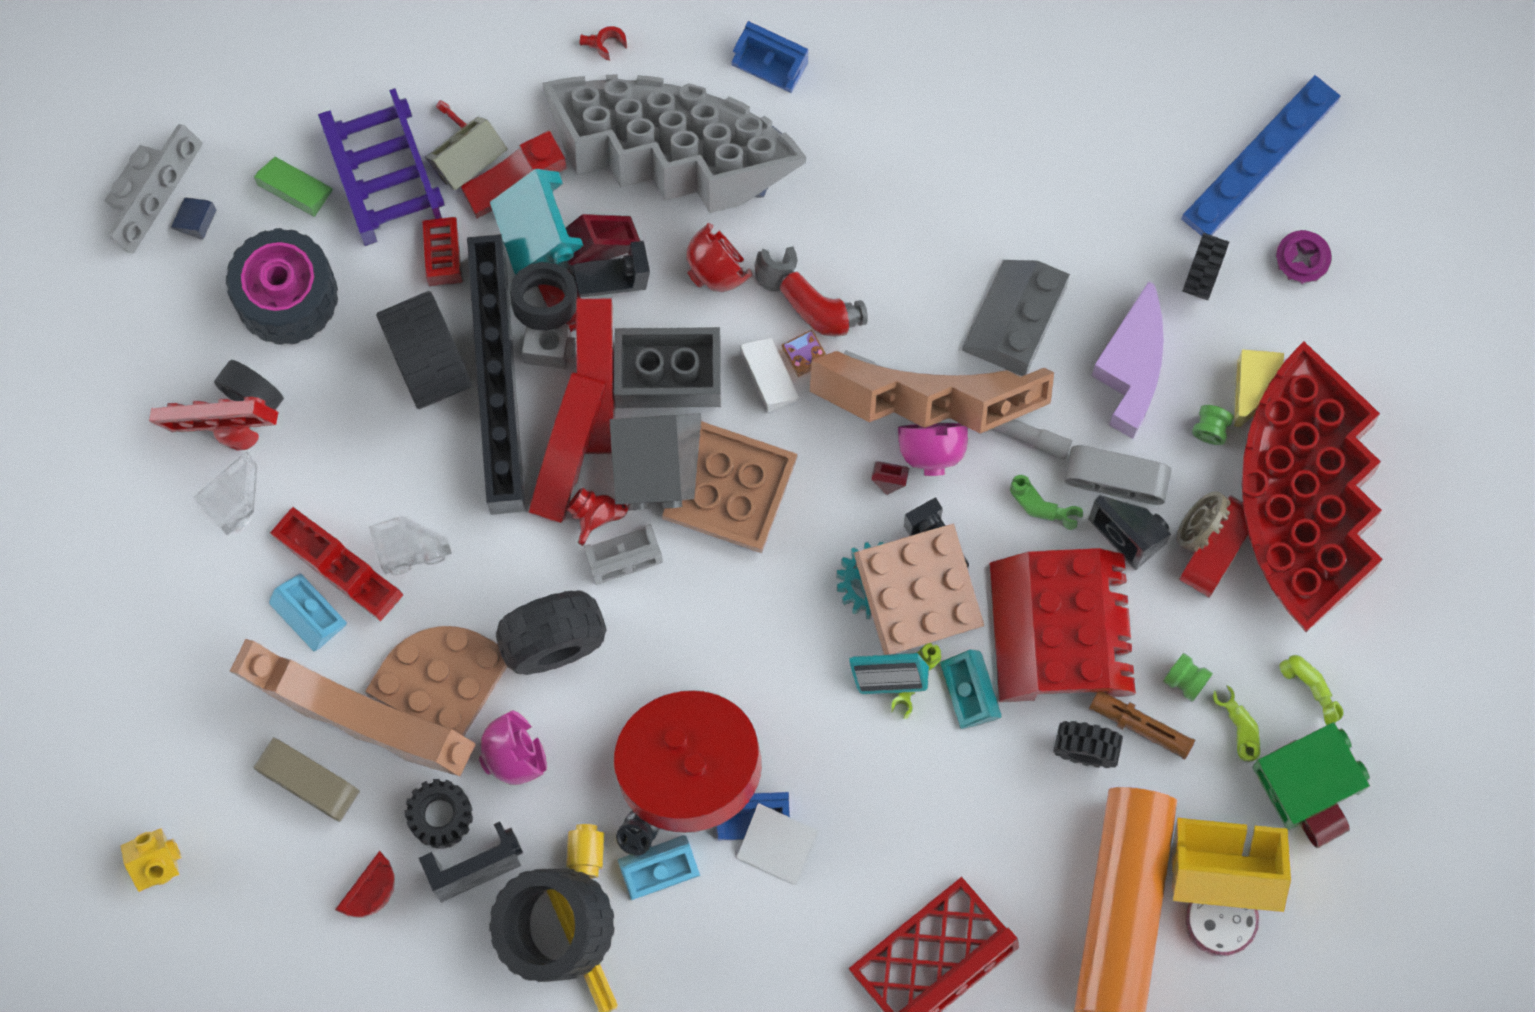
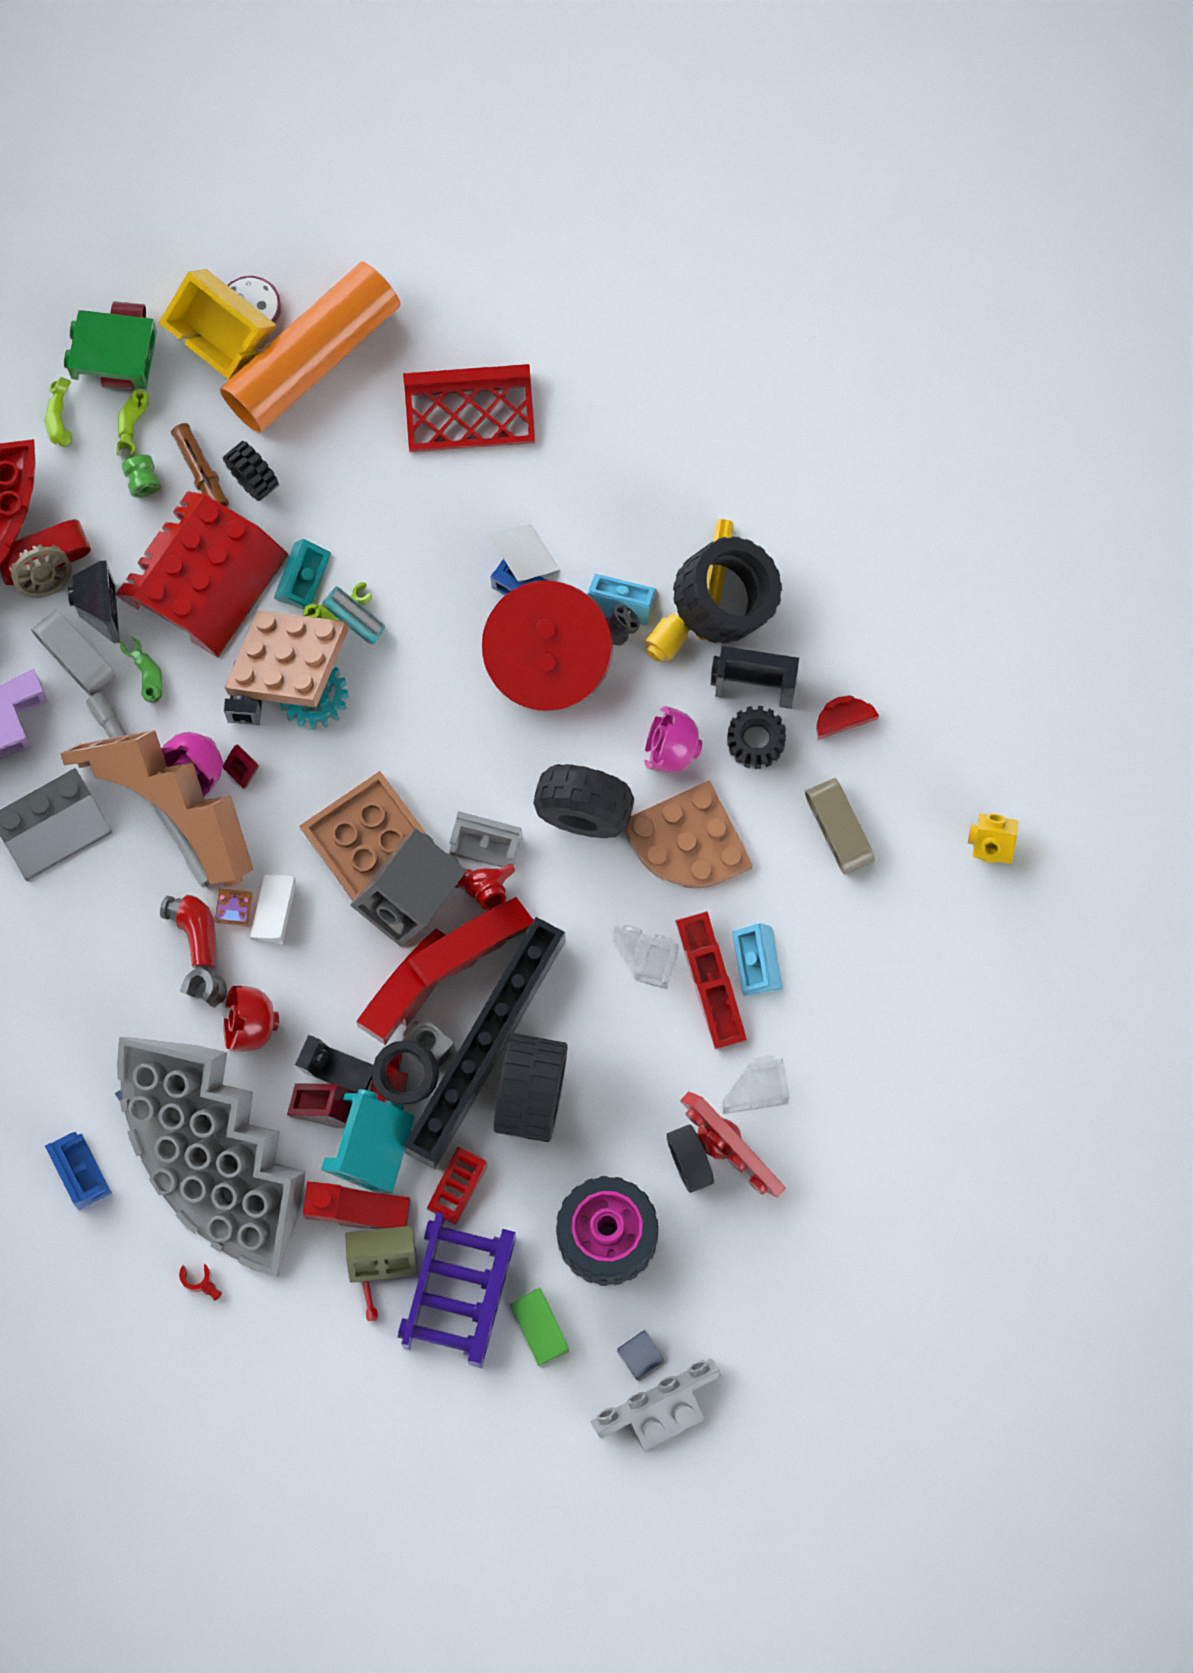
camera: 145 degrees left, 0 degrees up
(352, 712) = (768, 839): nougat arch -> none
(667, 367) = (346, 954): dark grey brick -> none

